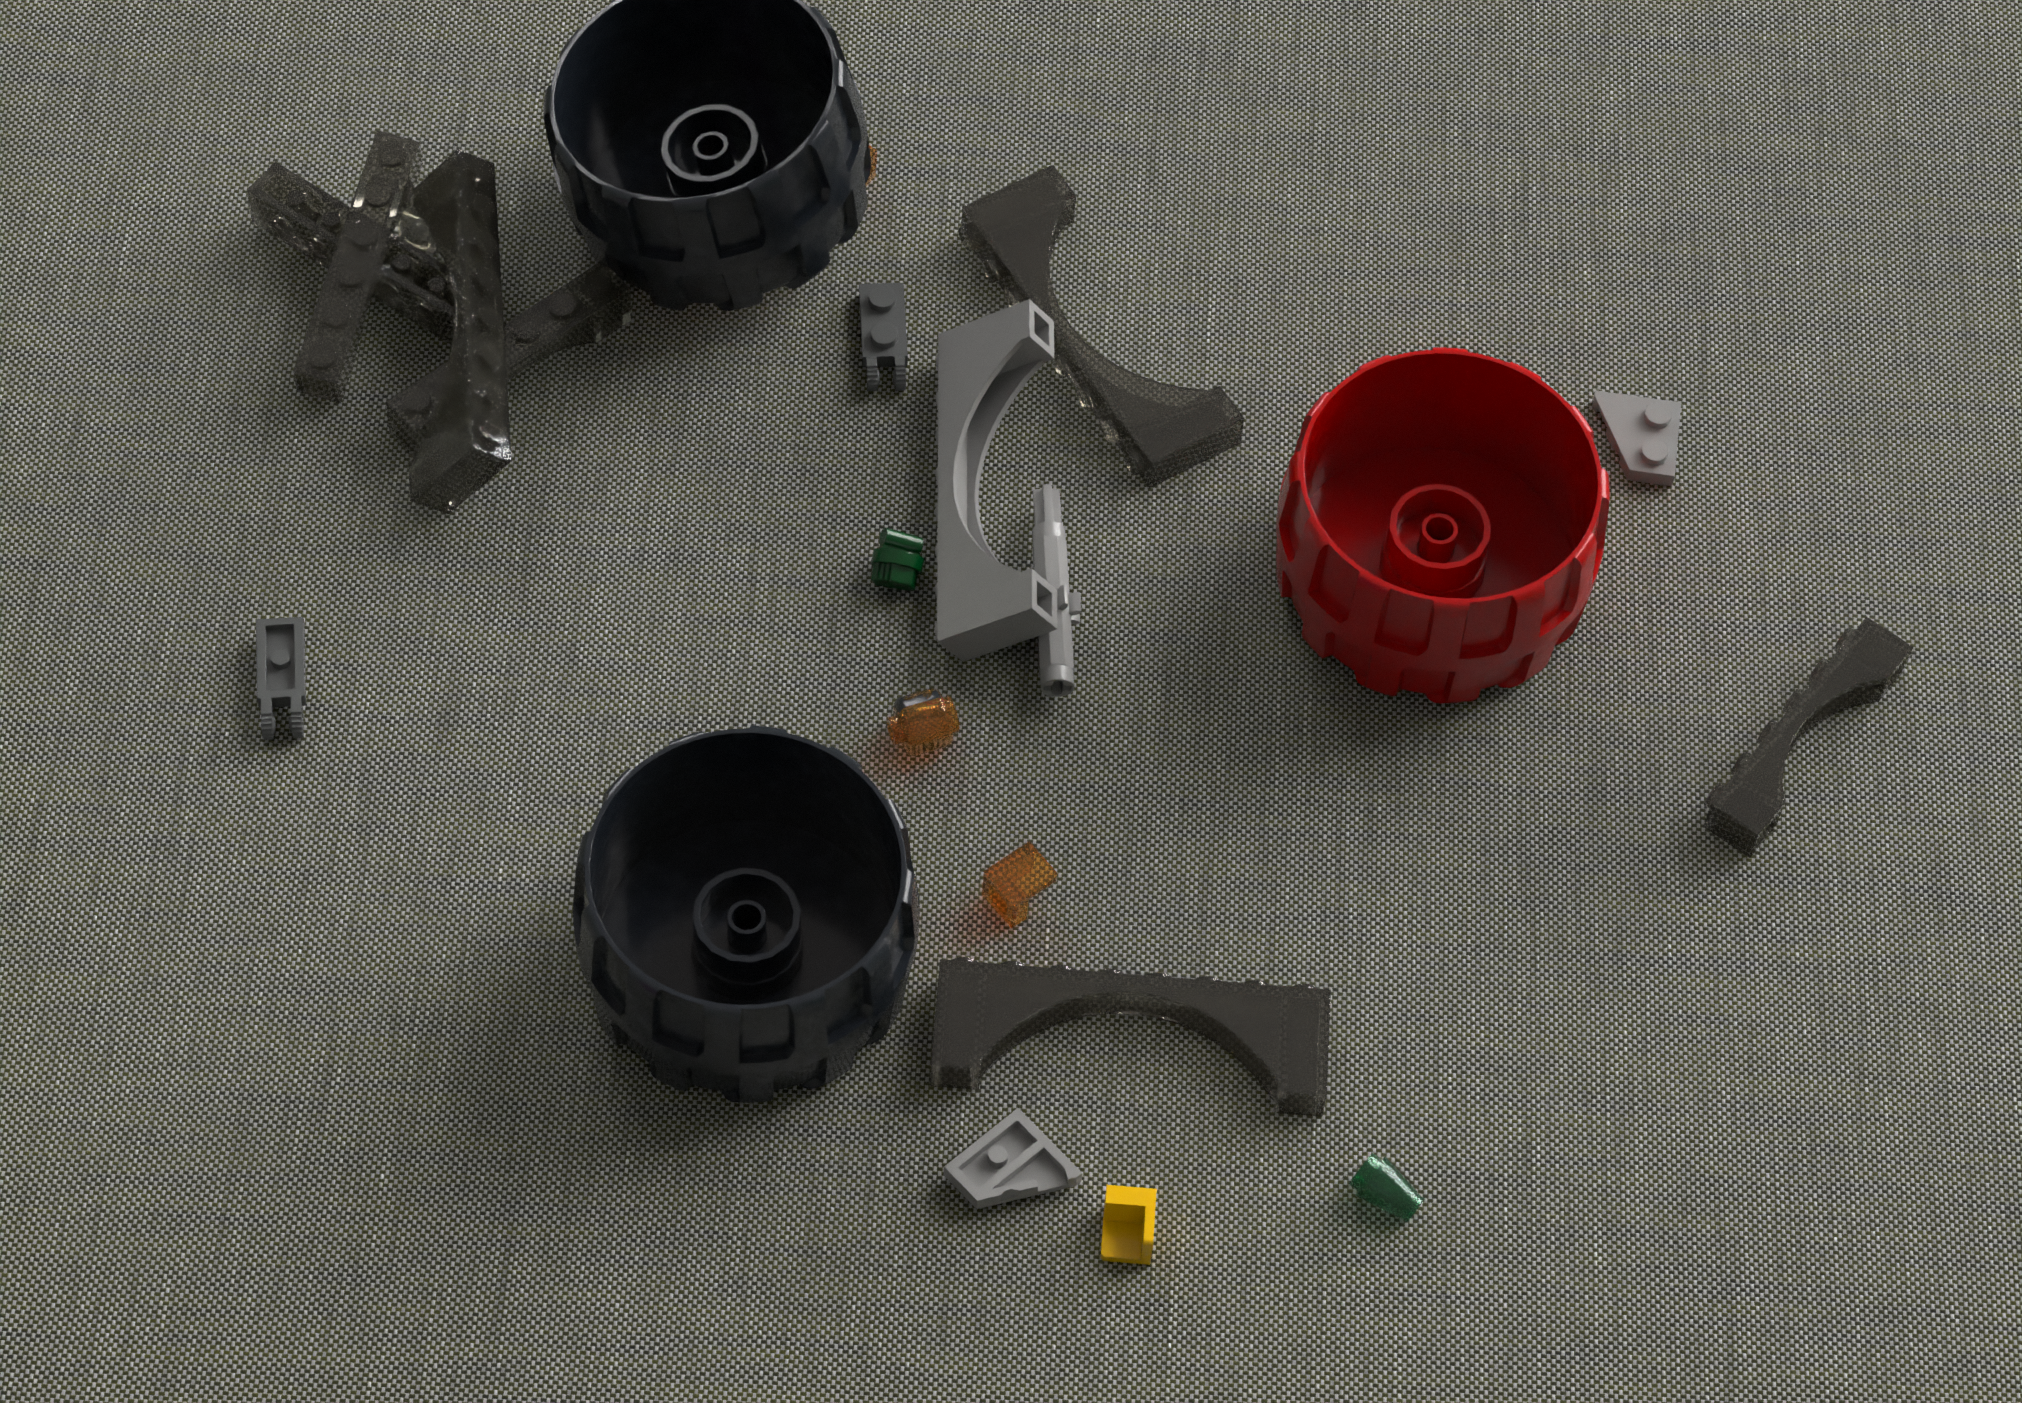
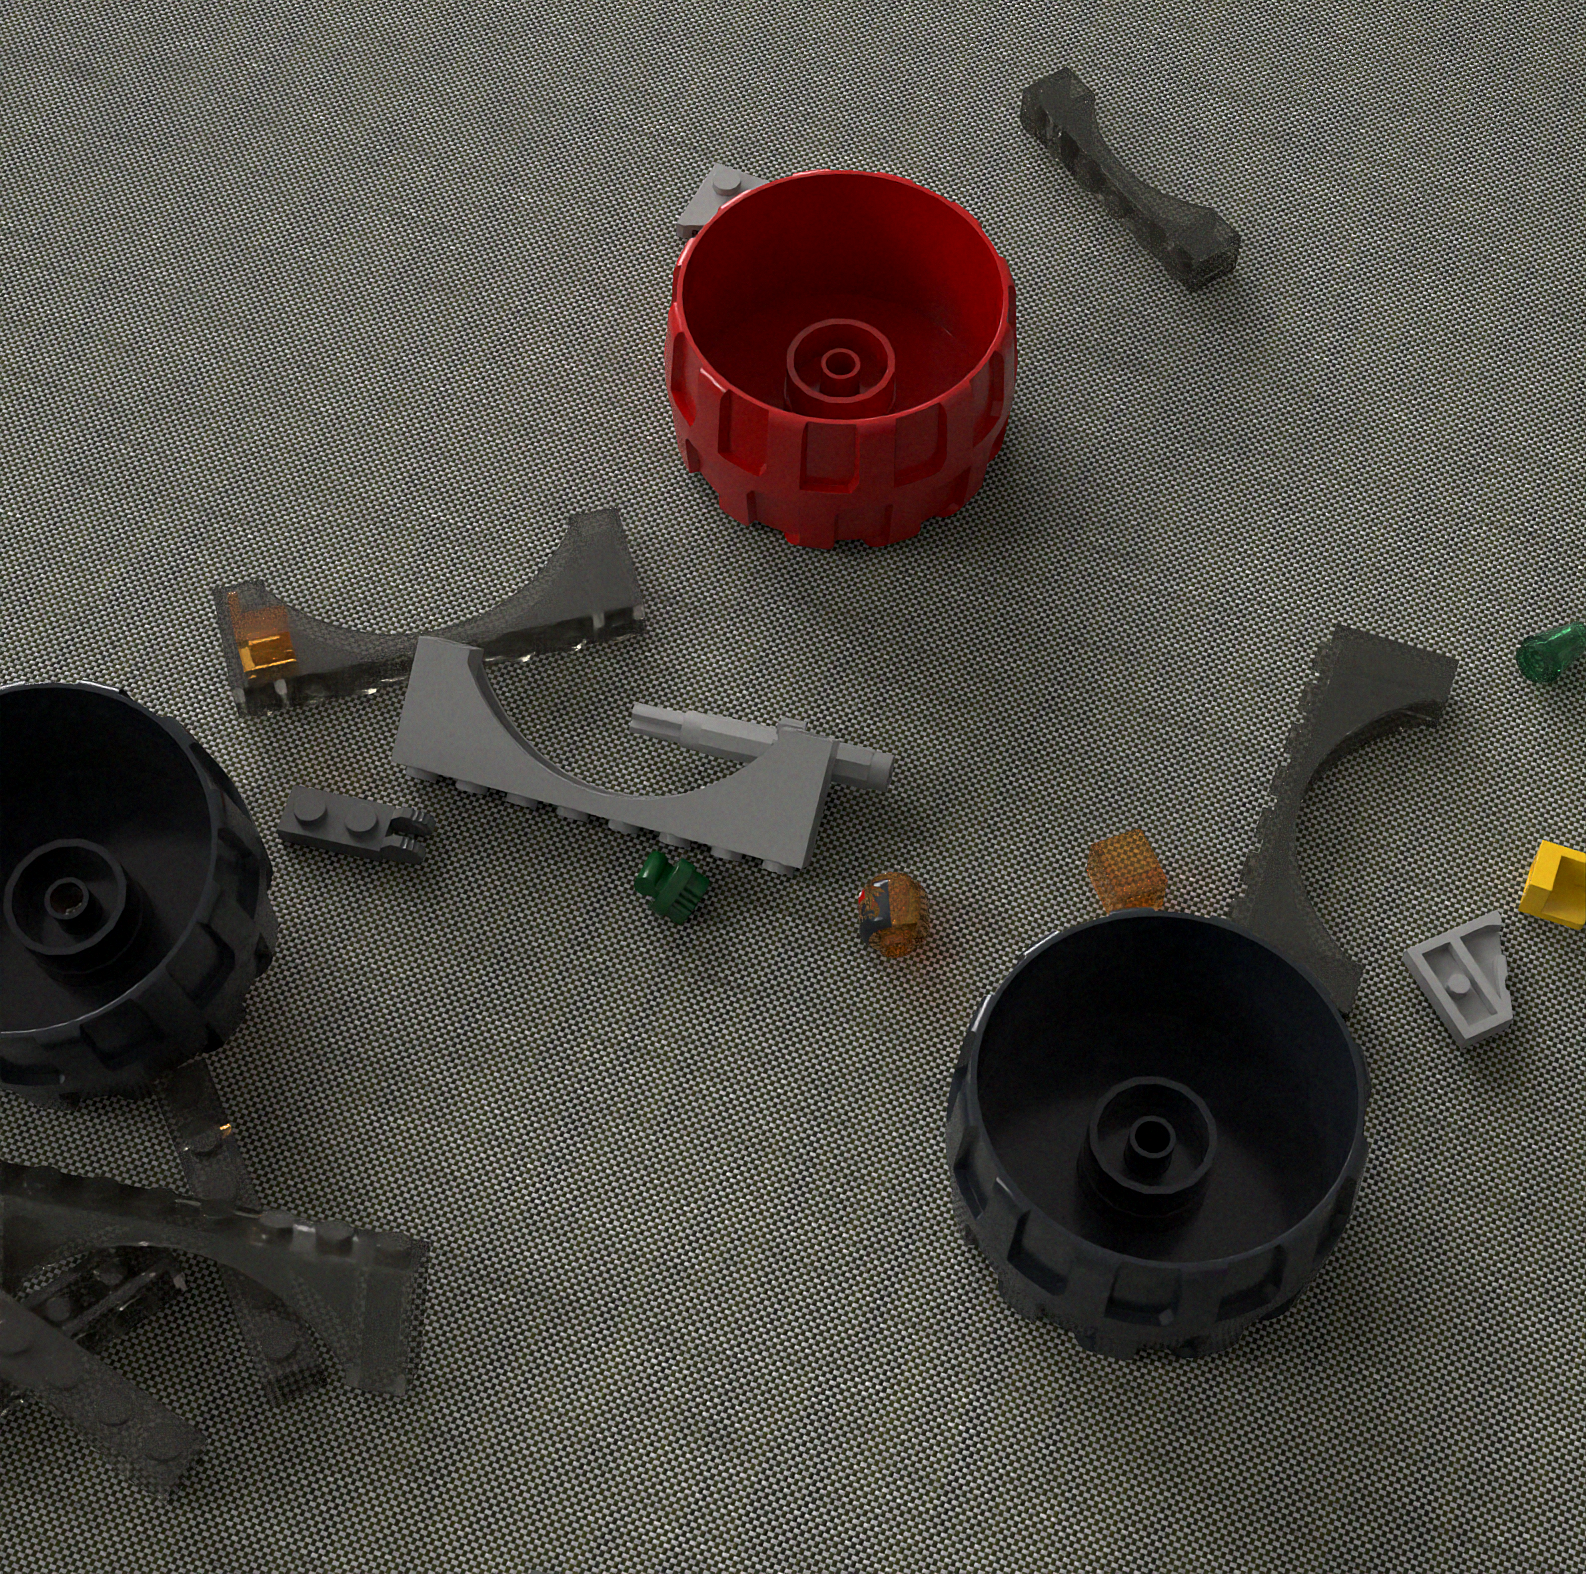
camera: 70 degrees left, 0 degrees up
(1013, 202) = (261, 635): none -> clear orange panel

